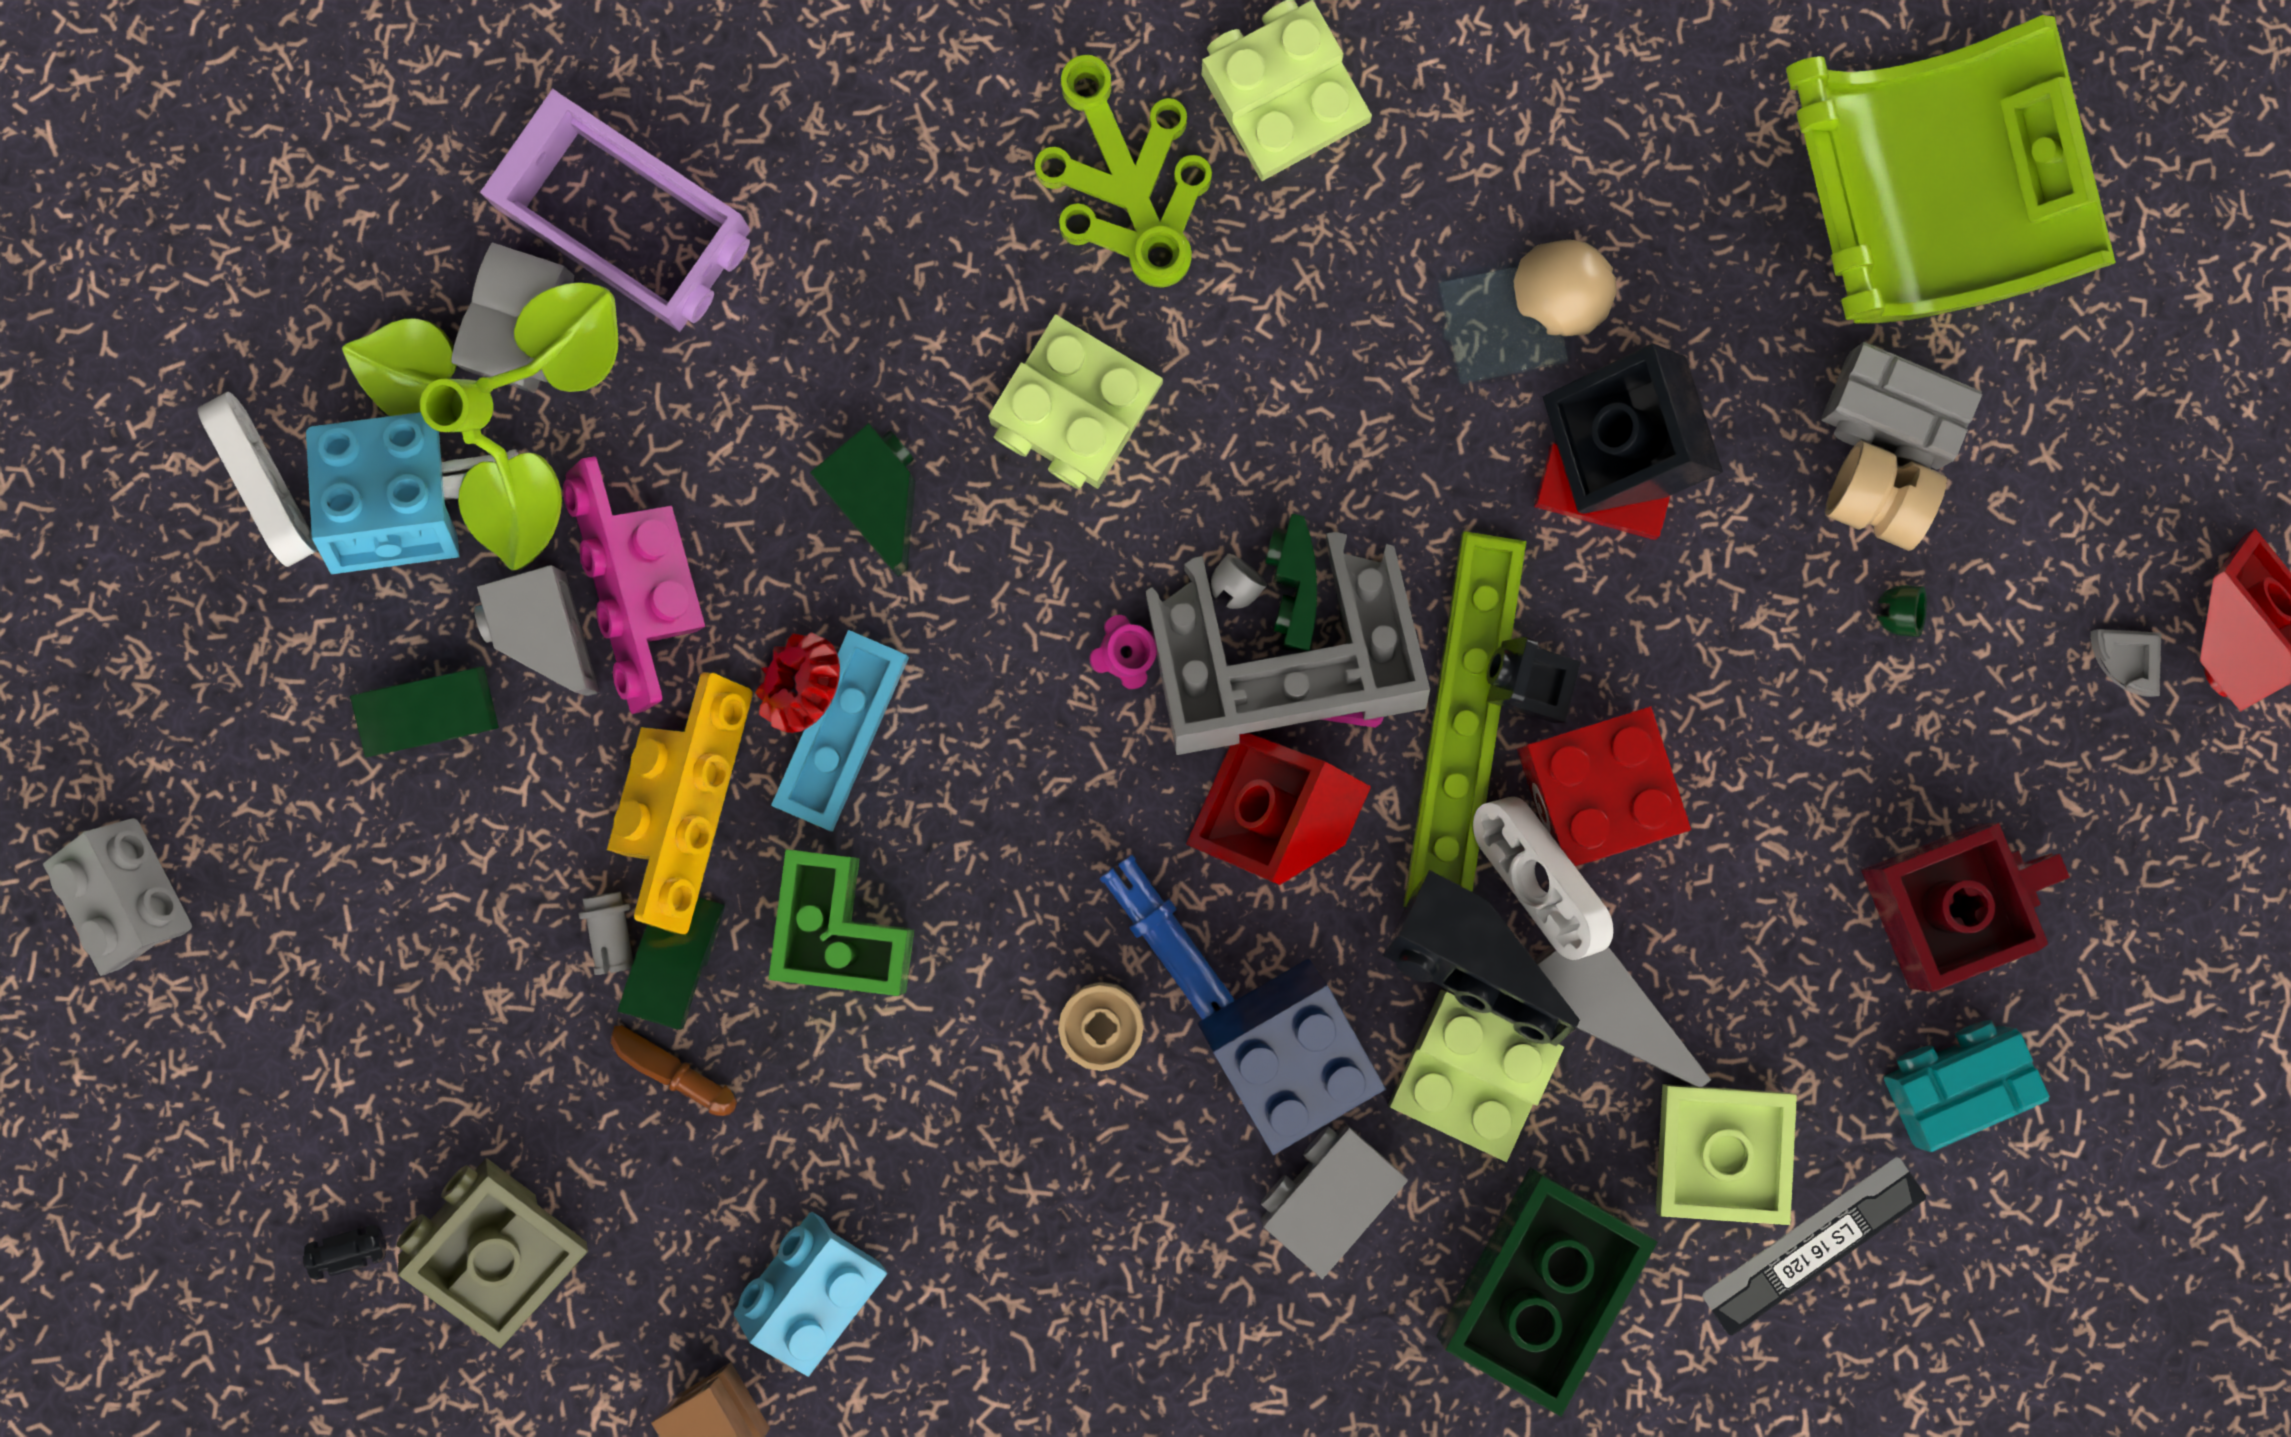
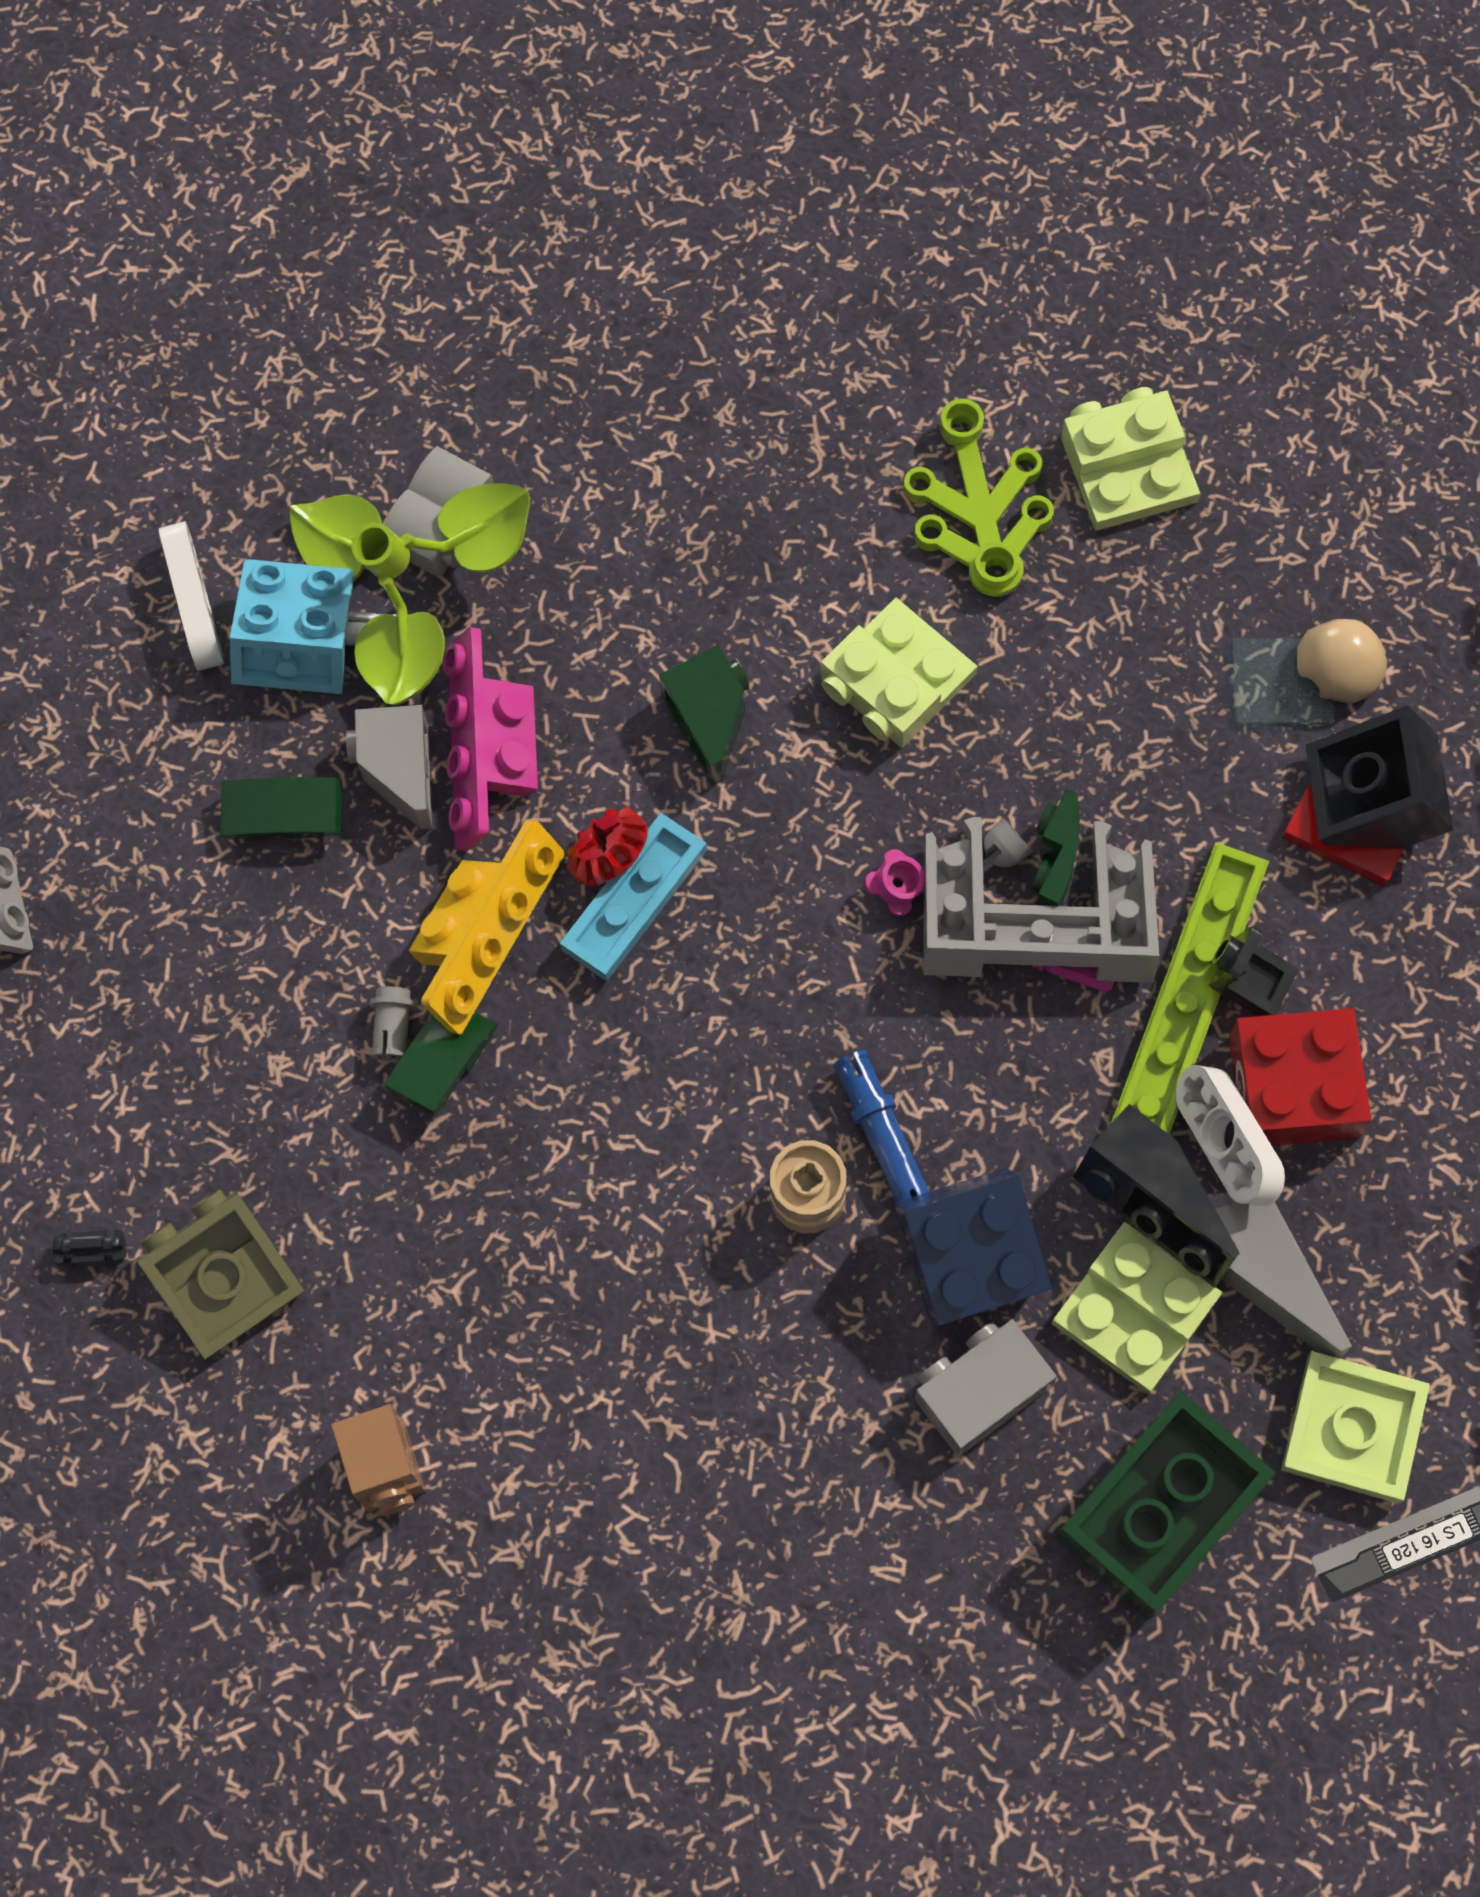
camera: 15 degrees right, 15 degrees down
(538, 153) = (496, 385): lavender window -> none
(670, 1071) = (415, 1154): dark orange piece -> none
(807, 1295) = (491, 1373): medium azure bracket -> none
(819, 940) = (579, 1063): bright green brick -> none
(1276, 810) = (1005, 1034): red slope -> none

